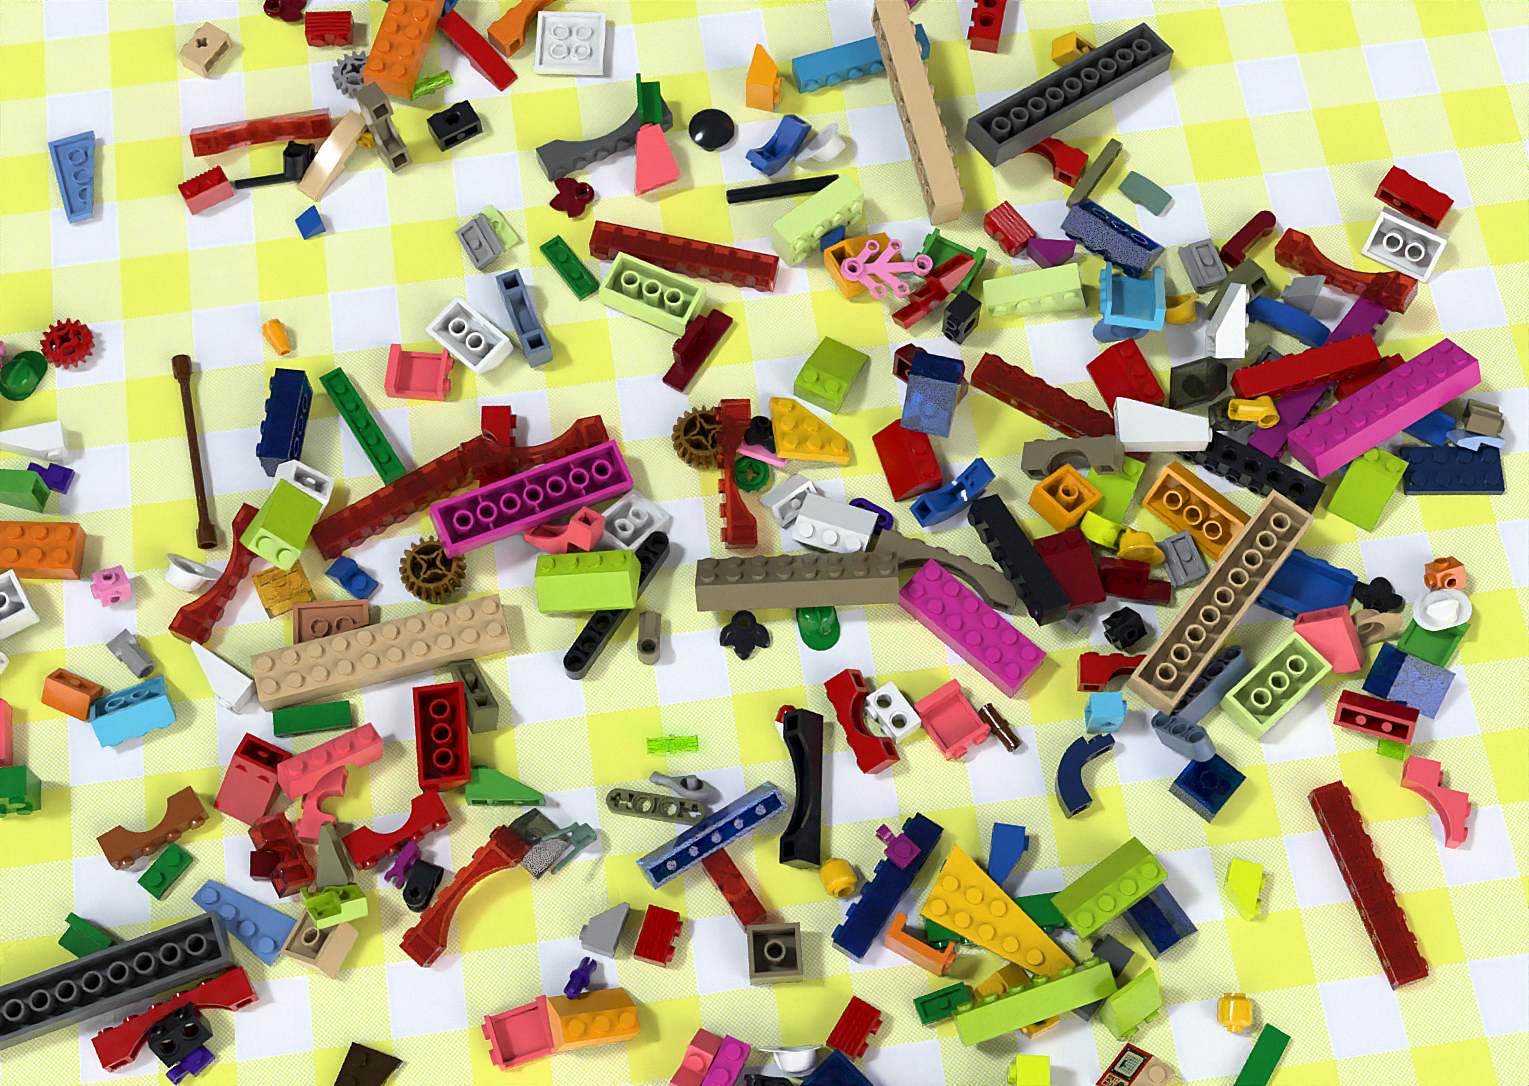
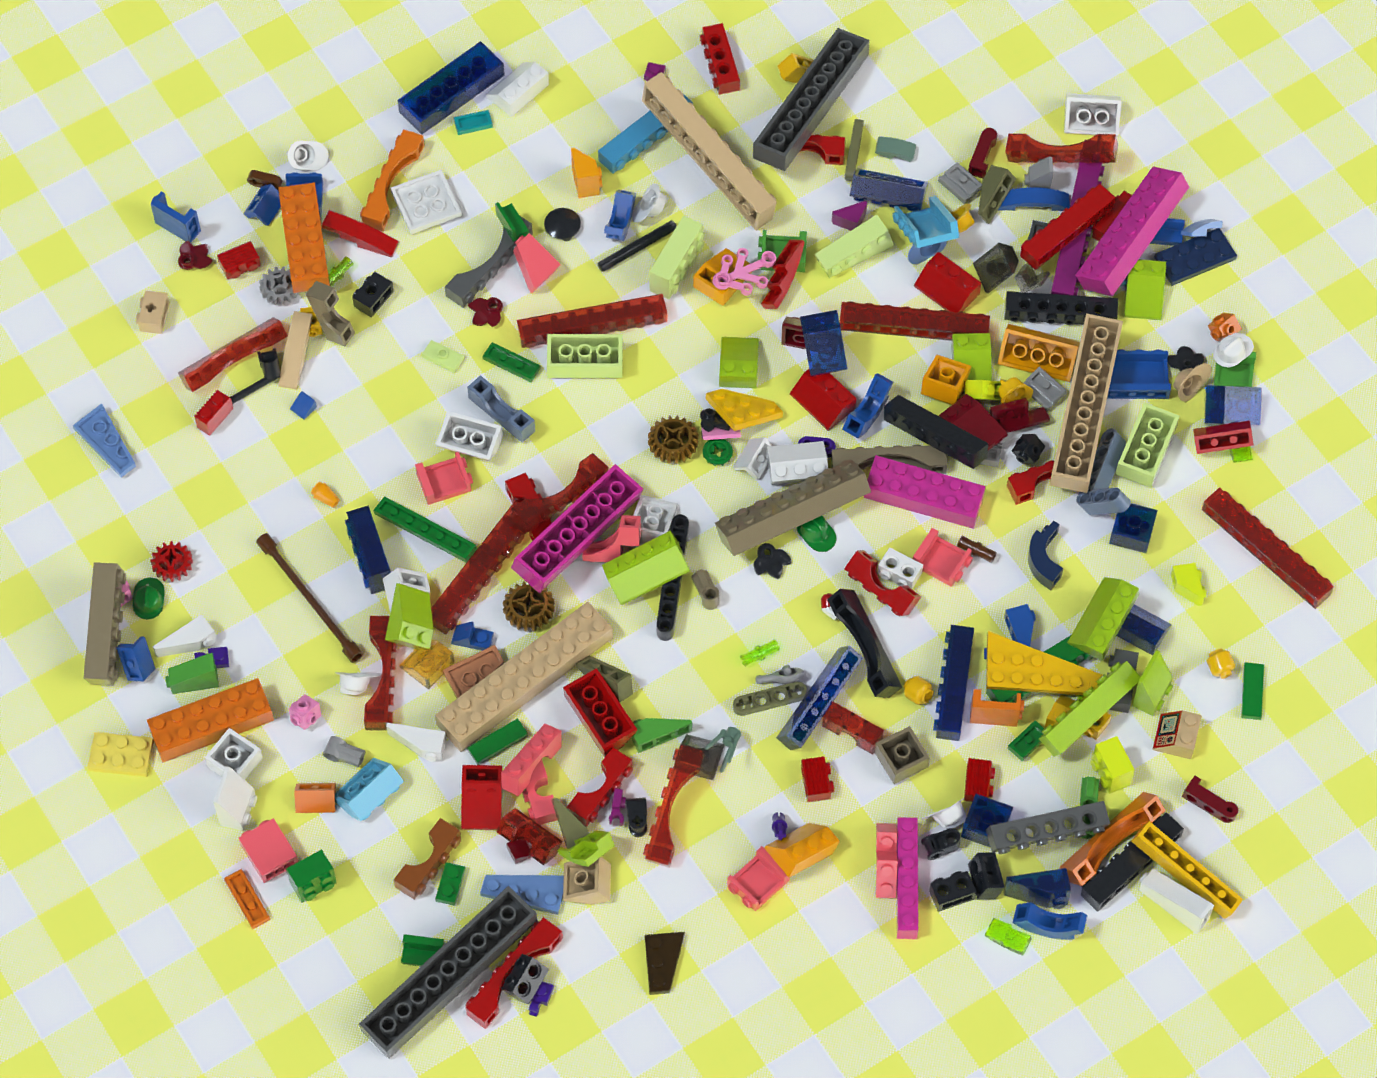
camera: 25 degrees left, 5 degrees down
(480, 241) = (438, 368): light grey plate -> none
(605, 930) = (778, 791): light grey slope -> none
(695, 347) = (634, 381): dark red bracket -> none
(739, 523) = (729, 487): clear red arch -> none
(832, 238) = (693, 267): blue slope -> none
(900, 849) = (951, 652): magenta plate -> none
(961, 317) = (812, 284): black brick -> none
(1008, 229) = (813, 211): red brick -> none
(1044, 457) = (918, 356): dark tan arch -> none
(1104, 712) = (1043, 508): medium azure brick -> none
(1158, 429) = (986, 306): white slope -> none
(1227, 327) = (1001, 220): white slope -> none
(1259, 410) = (1048, 266): yellow piece -> none
(1333, 637) = (1170, 396): coral slope -> none
(1413, 197) = (1083, 79): red brick -> none
(1452, 806) = (1272, 465): coral arch -> none
(1482, 418) = (1200, 212): dark tan brick -> none

